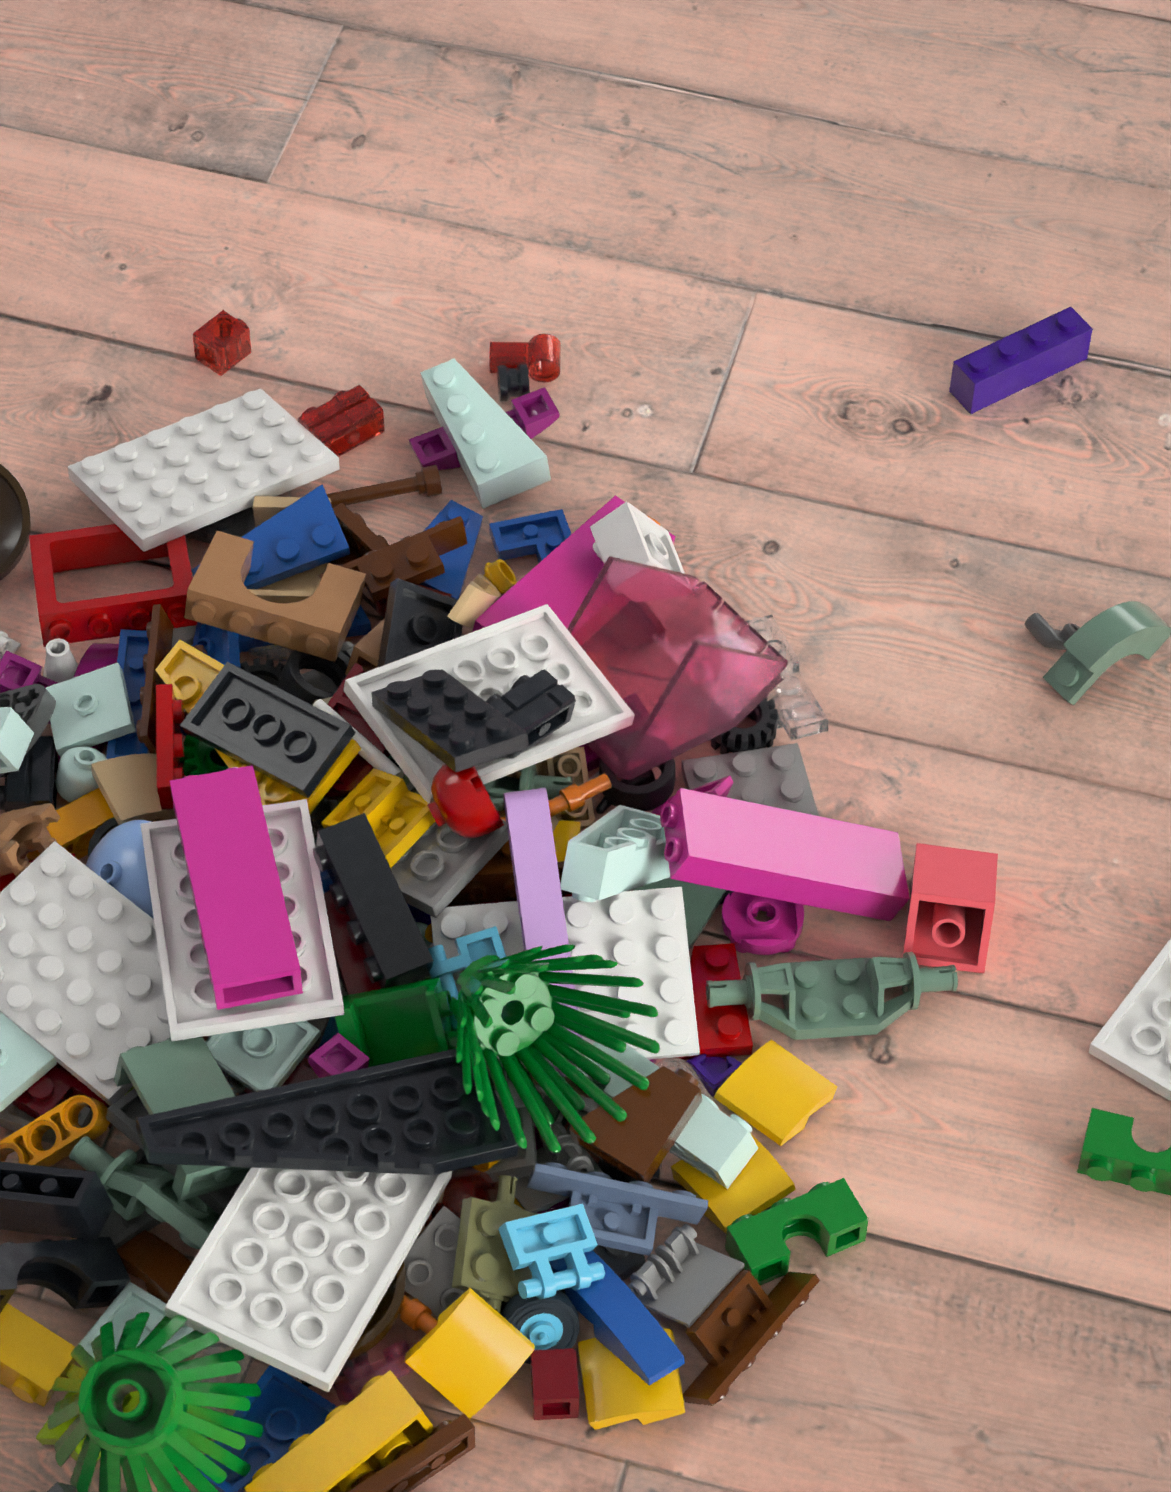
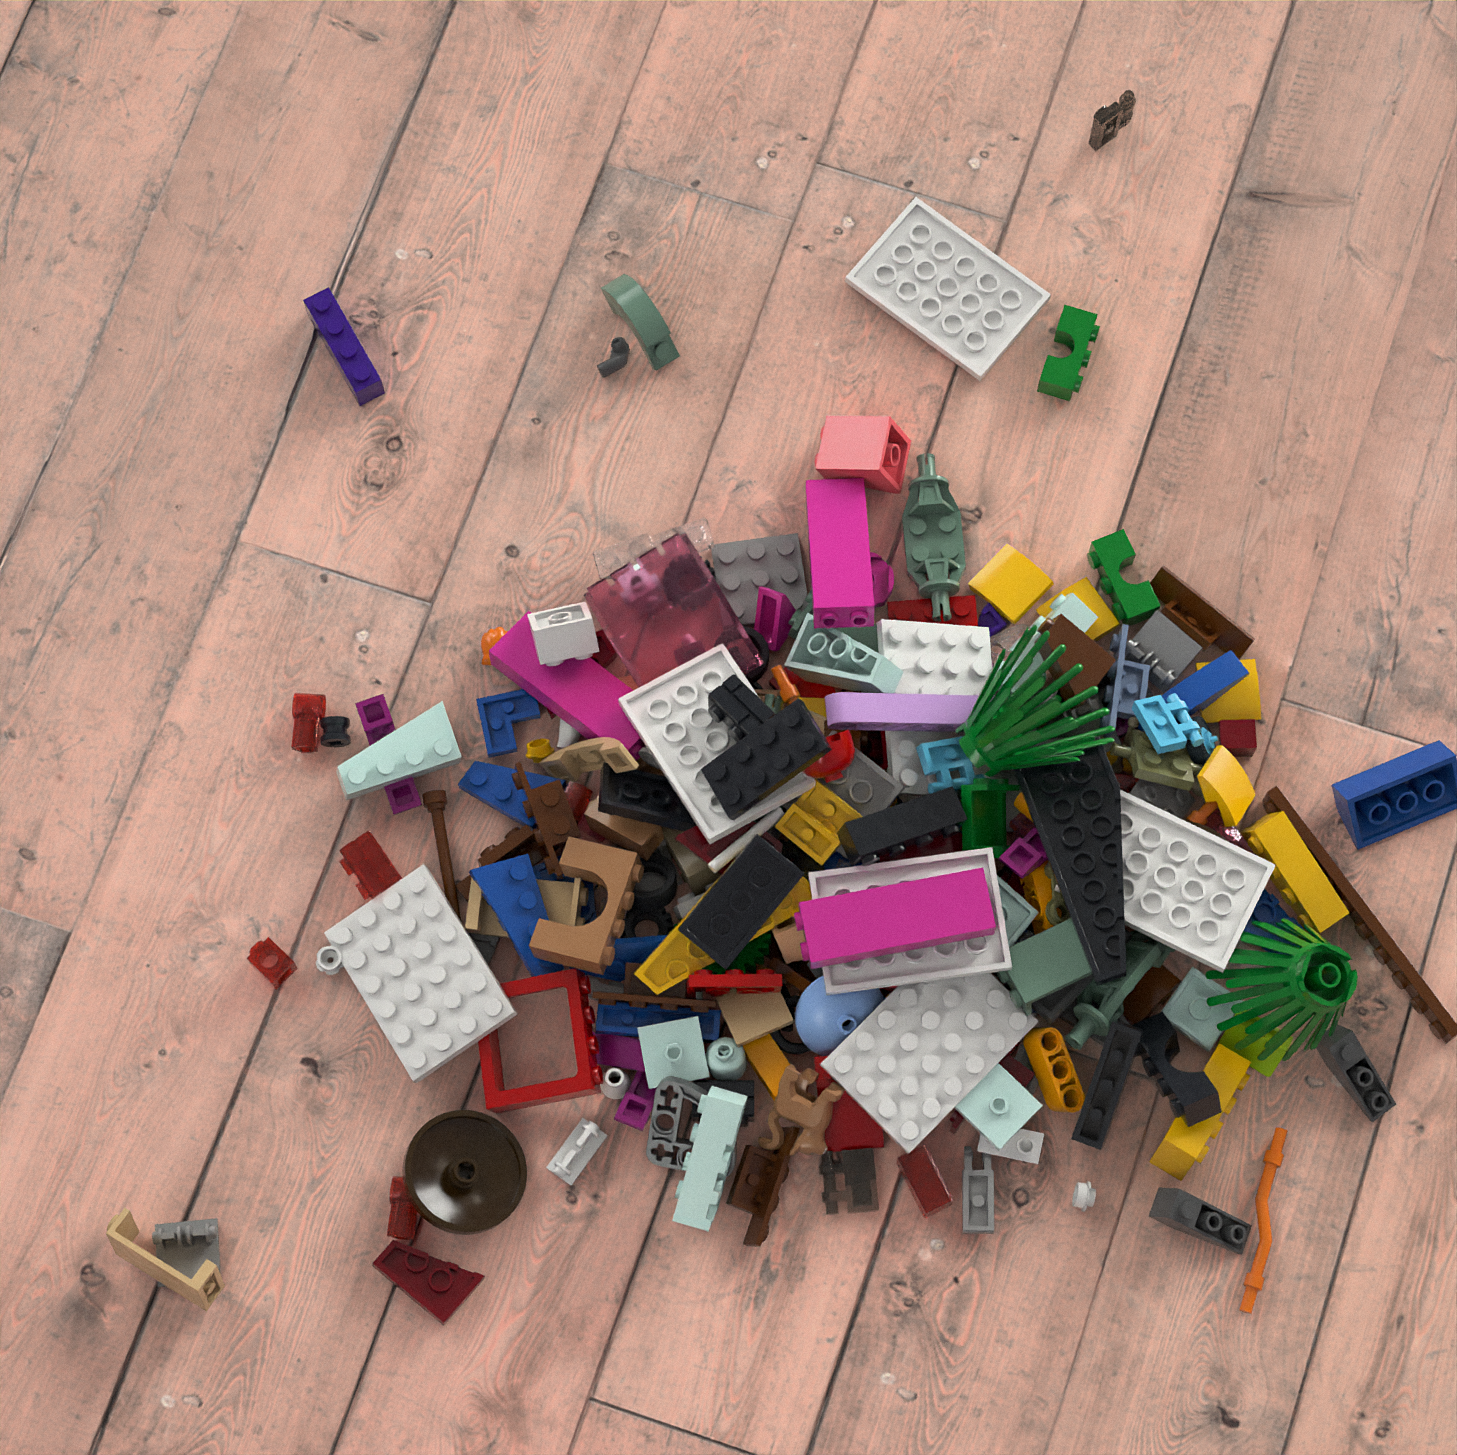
camera: 85 degrees left, 20 degrees up
(226, 392) = (322, 960): none -> white plate

